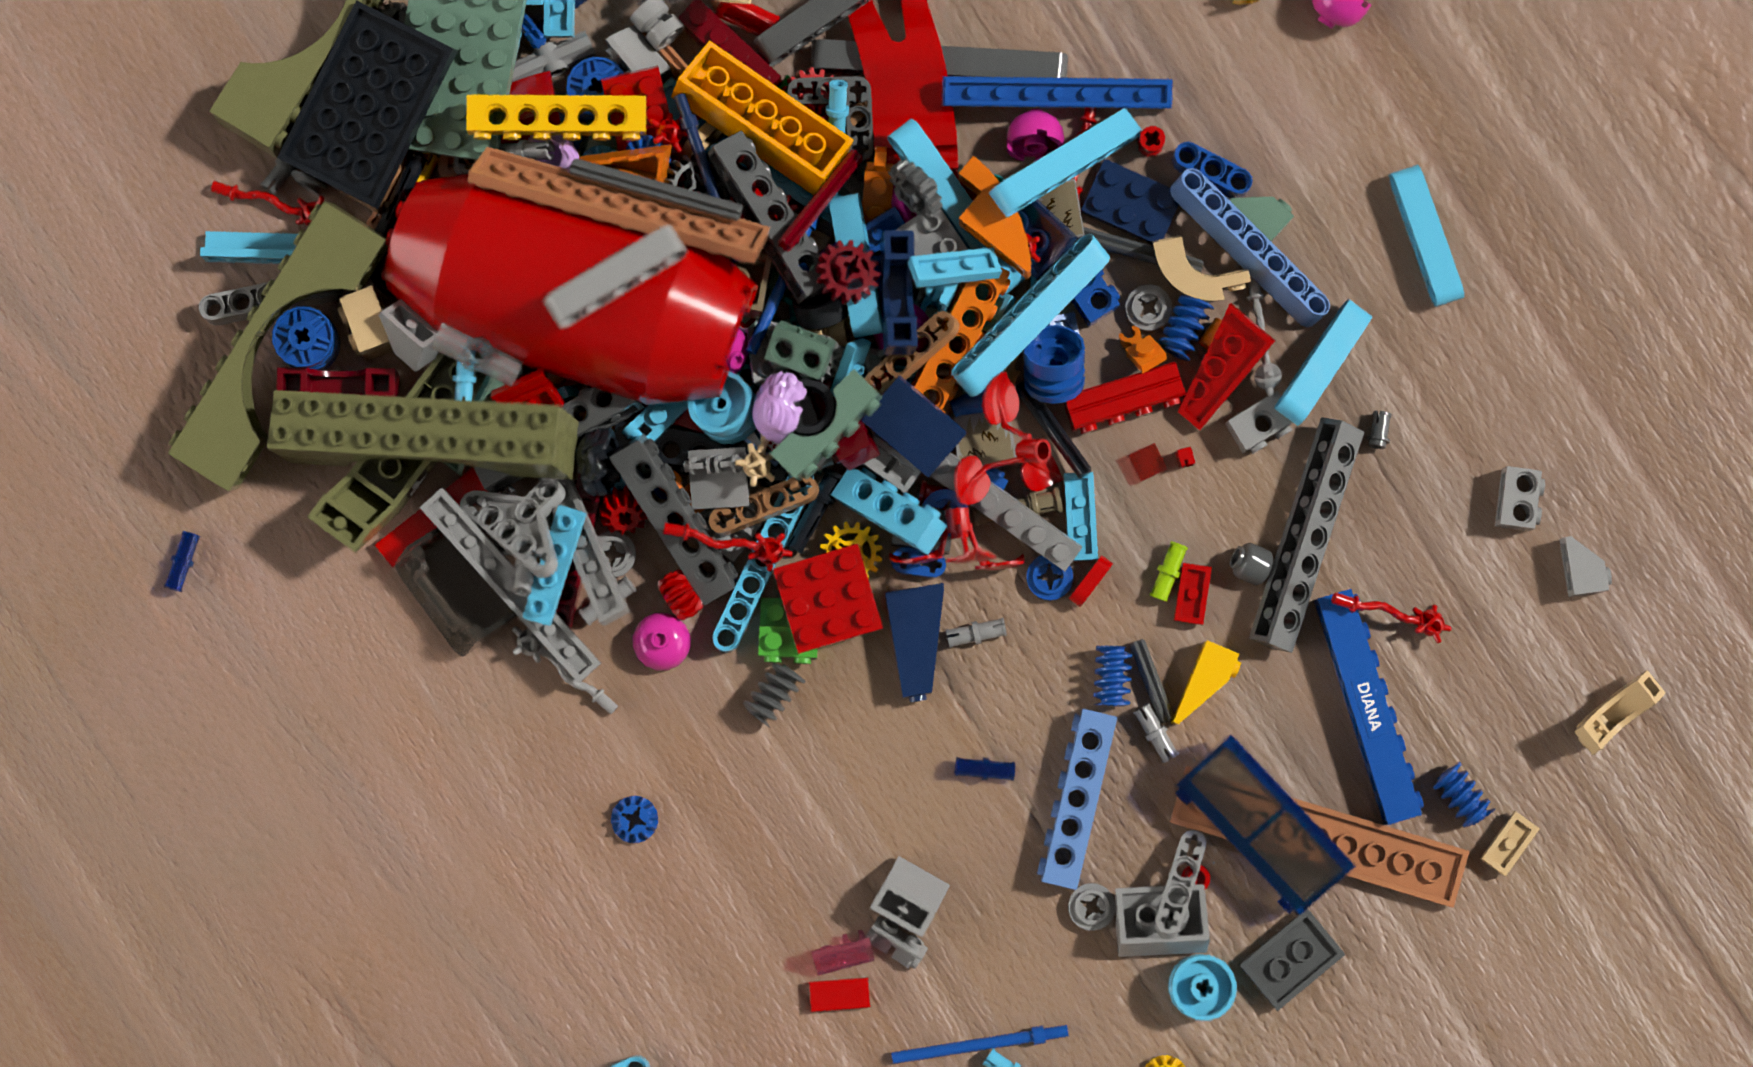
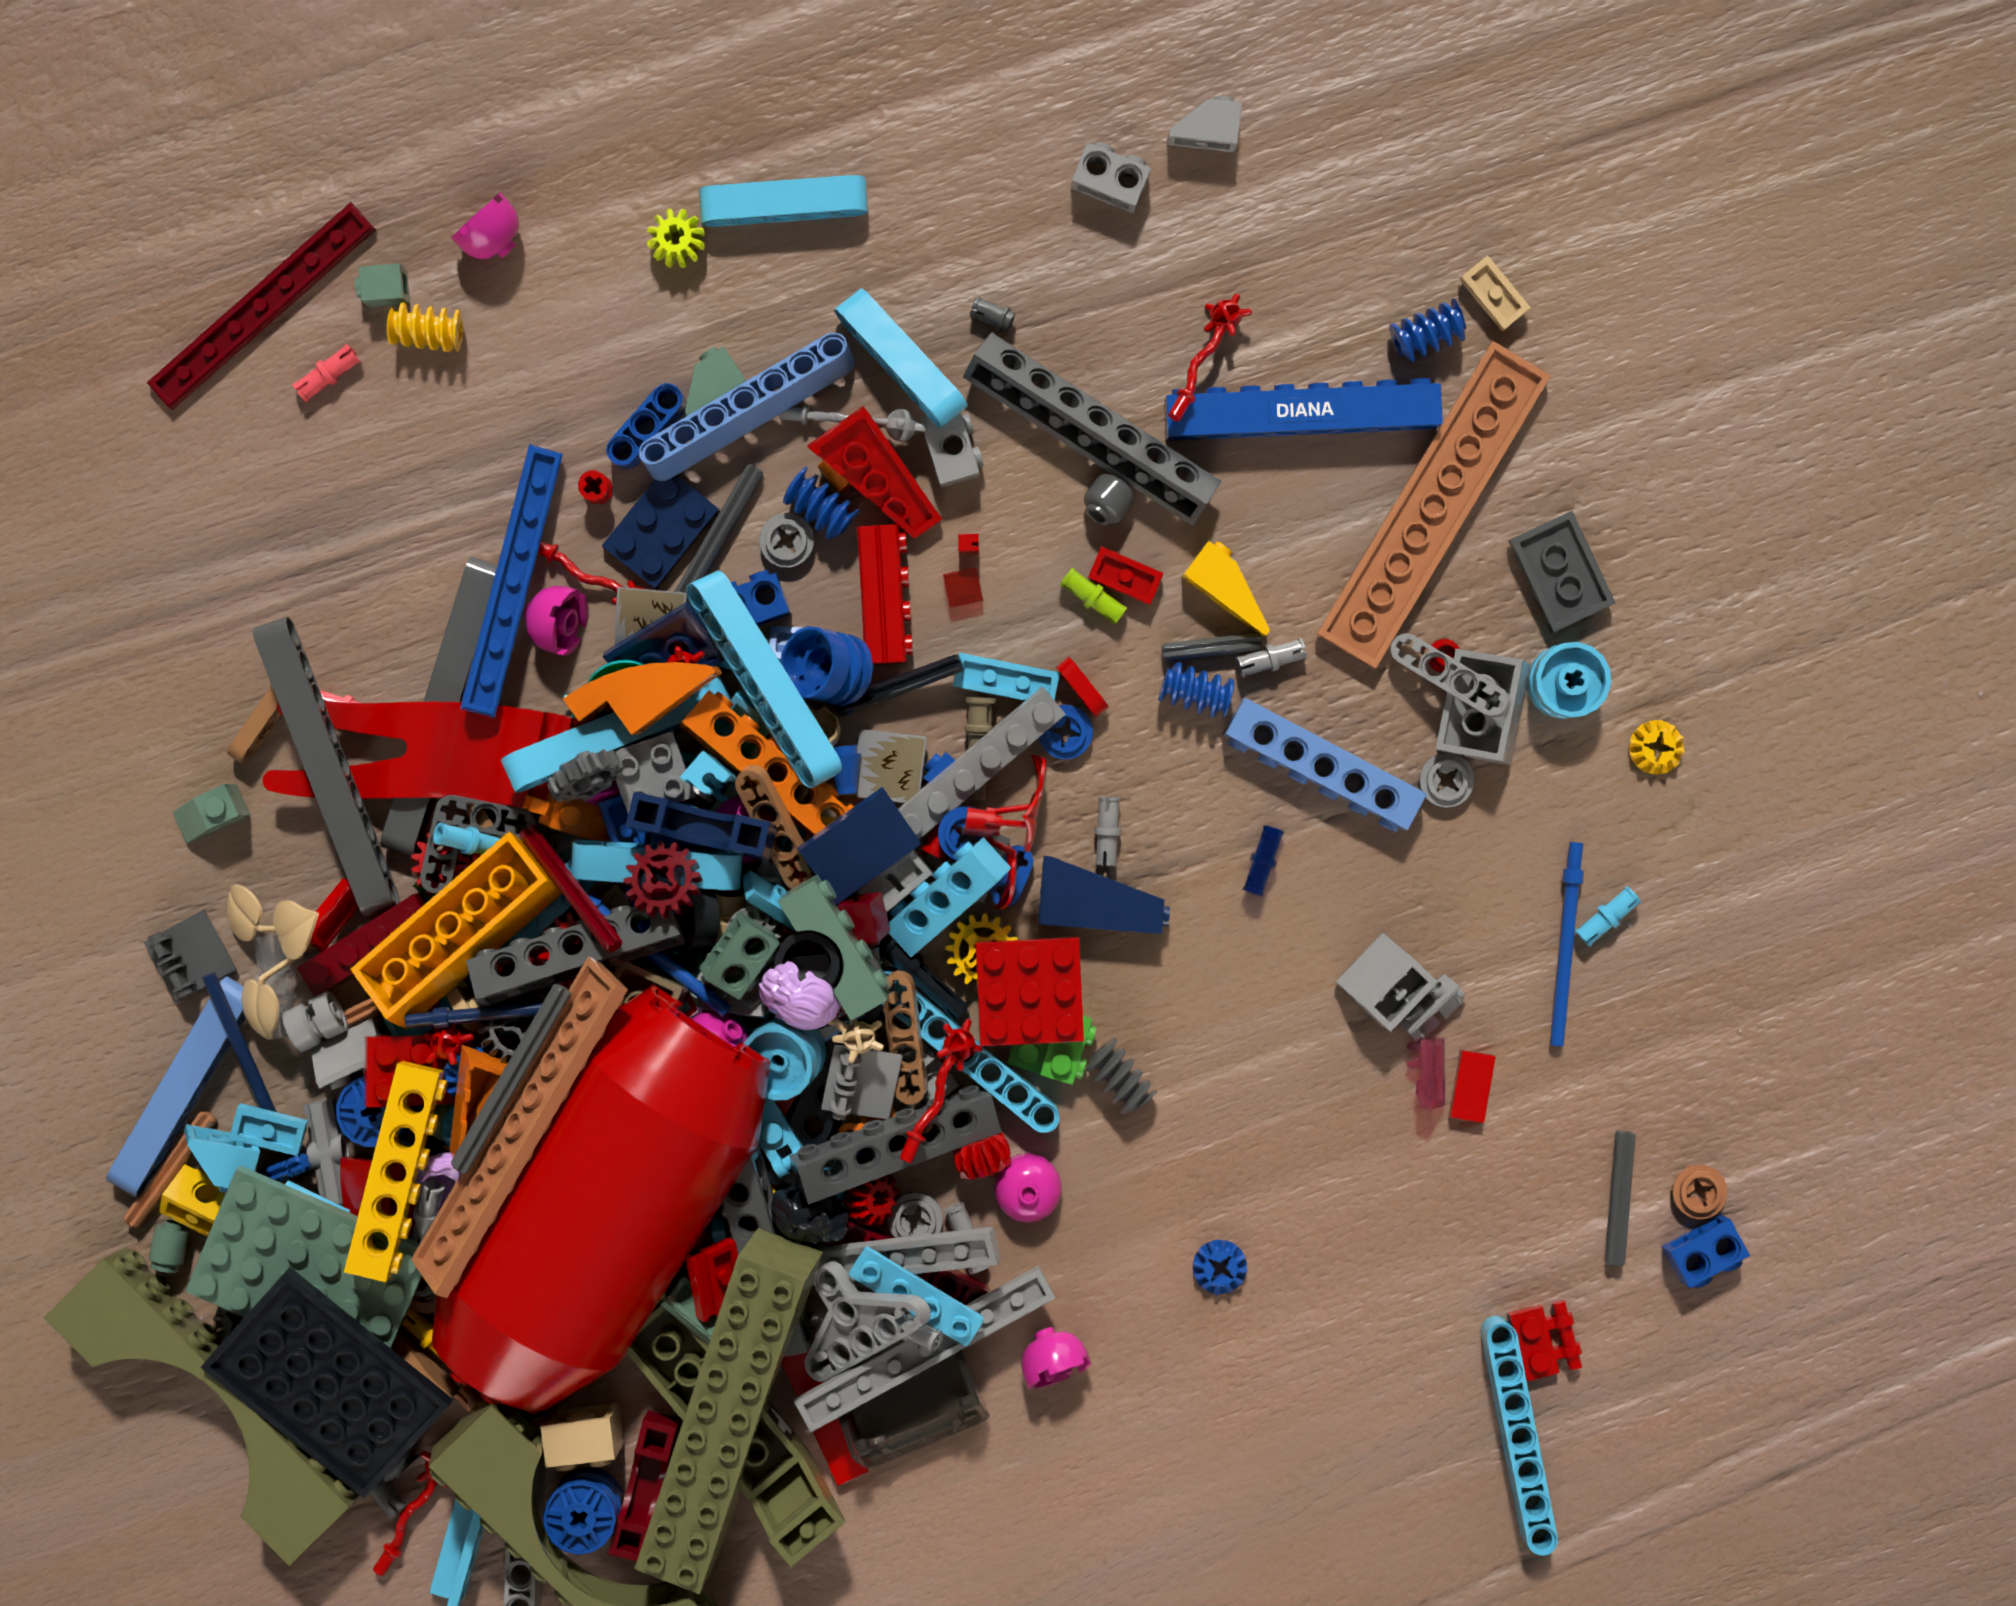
camera: 70 degrees left, 5 degrees up
(401, 192) = (422, 1348): black pin -> none
(408, 335) = (609, 1397): light grey slope -> none
(459, 347) = (636, 1348): clear piece -> none
(464, 382) = (673, 1345): medium azure pin -> none
(525, 696) = (1053, 1358): none -> dark pink cylinder
(531, 646) = (998, 1340): light grey piece -> none
(615, 276) = (603, 1158): light grey beam -> none
(954, 267) = (688, 754): medium azure plate -> none
(1038, 469) = (930, 714): red plant -> none
(1065, 162) = (597, 594): medium azure beam -> none
(1143, 352) = (836, 560): orange plate -> none
(1178, 271) = (762, 491): tan arch -> none
(1264, 824) = (1410, 565): windscreen -> none
(1372, 166) = (664, 235): none -> neon yellow gear
(1618, 711) = (1378, 131): tan arch -> none

